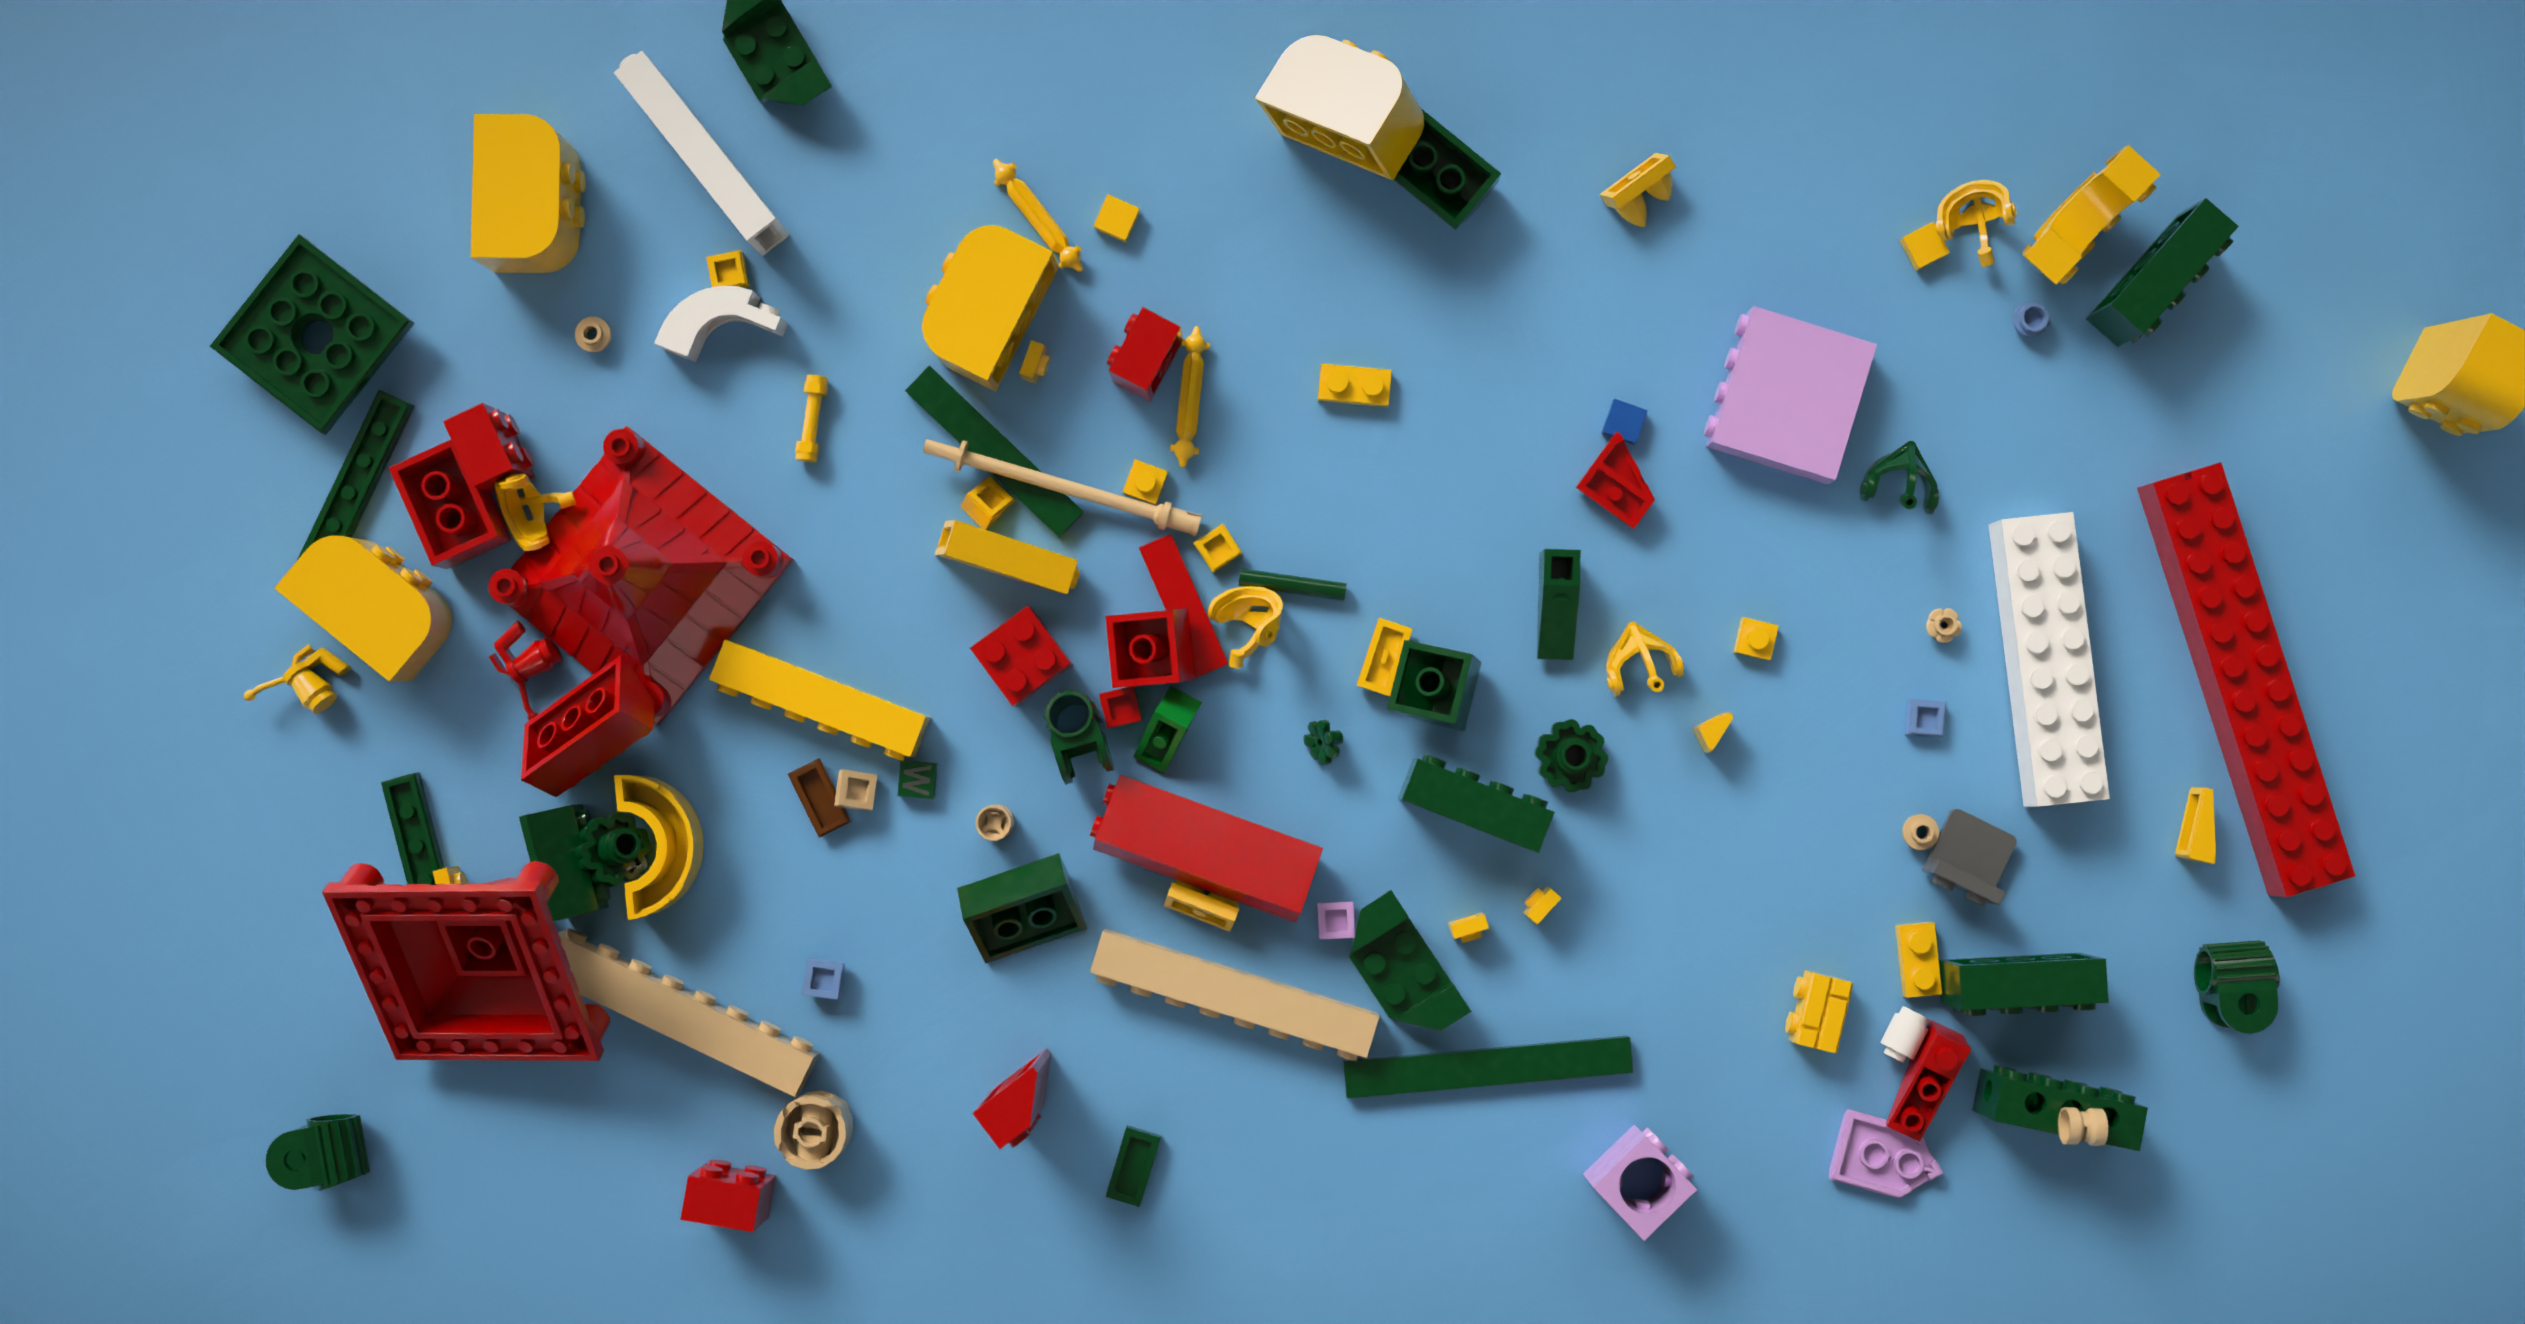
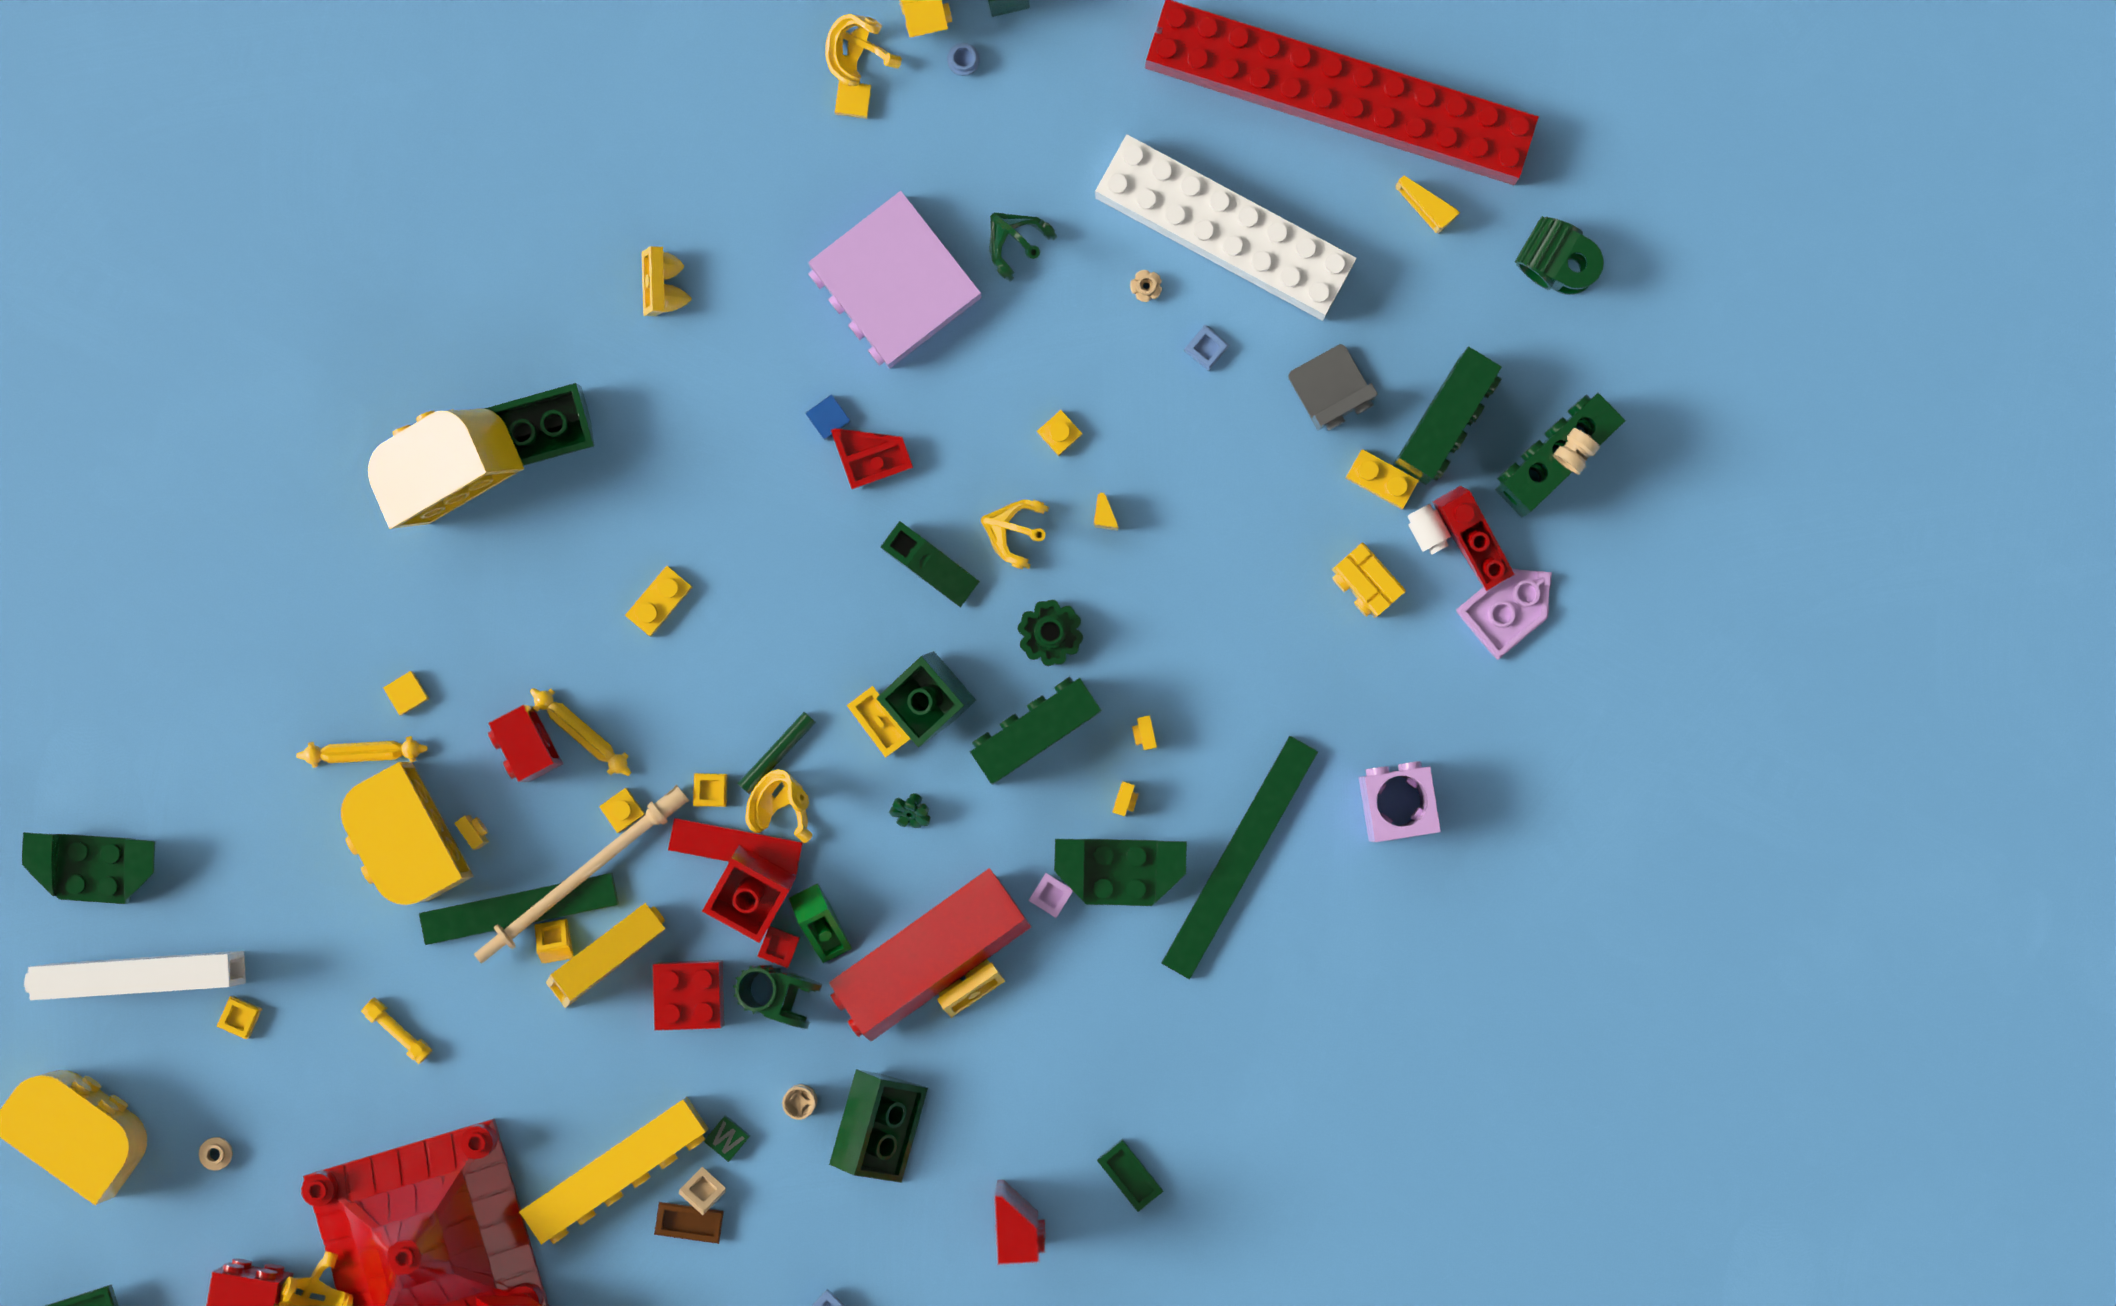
camera: 55 degrees left, 0 degrees up
(705, 310) = (257, 1055): white arch -> none
(1235, 994) = (1053, 1009): tan brick -> none
(1910, 836) = (1278, 416): tan plate -> none

